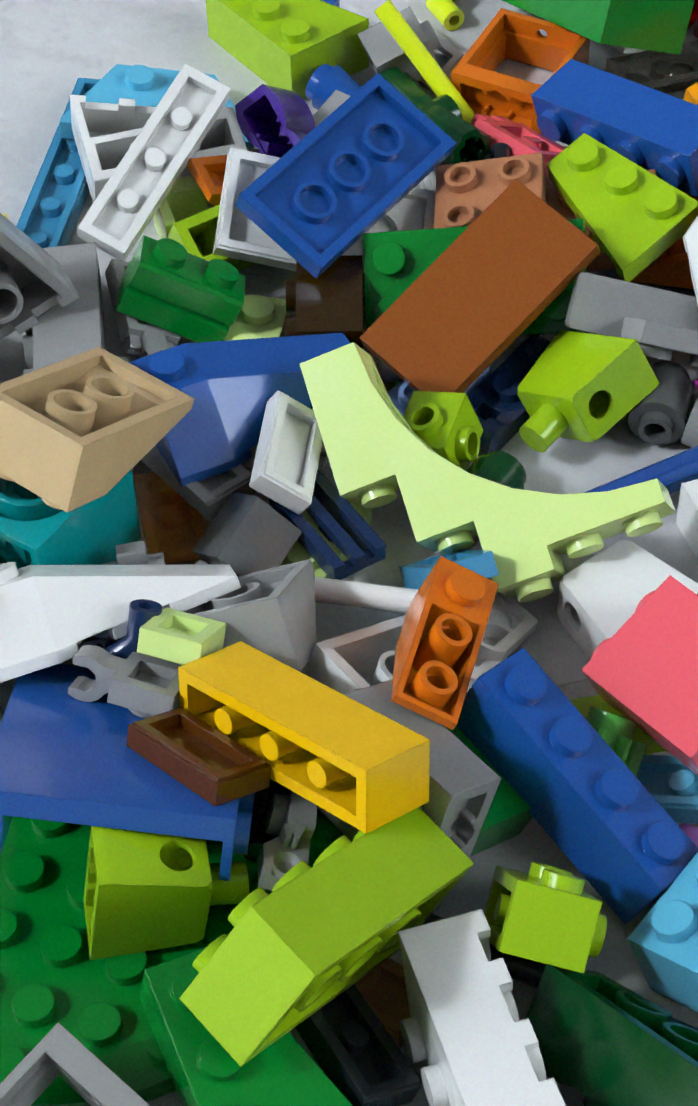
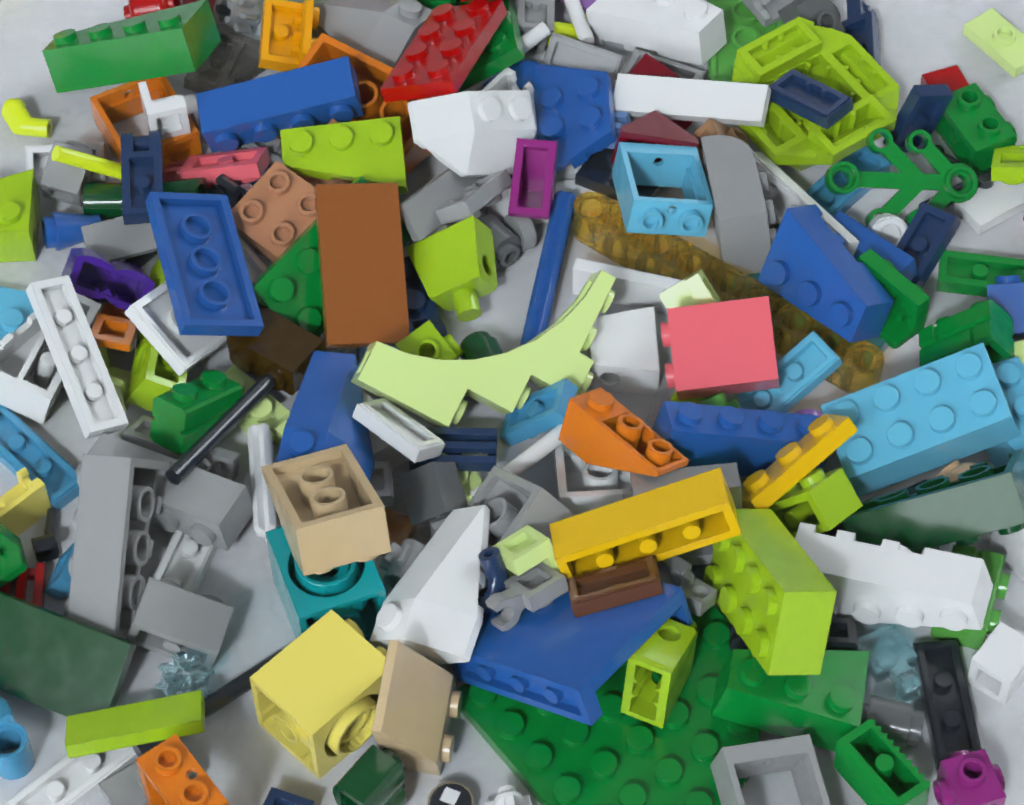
camera: 55 degrees left, 5 degrees up
(169, 318) = (220, 429): none -> black bar
(447, 77) = (140, 173): none -> dark blue plate
(522, 57) = (165, 113): none -> white panel
(579, 851) = (796, 461): none -> yellow plate

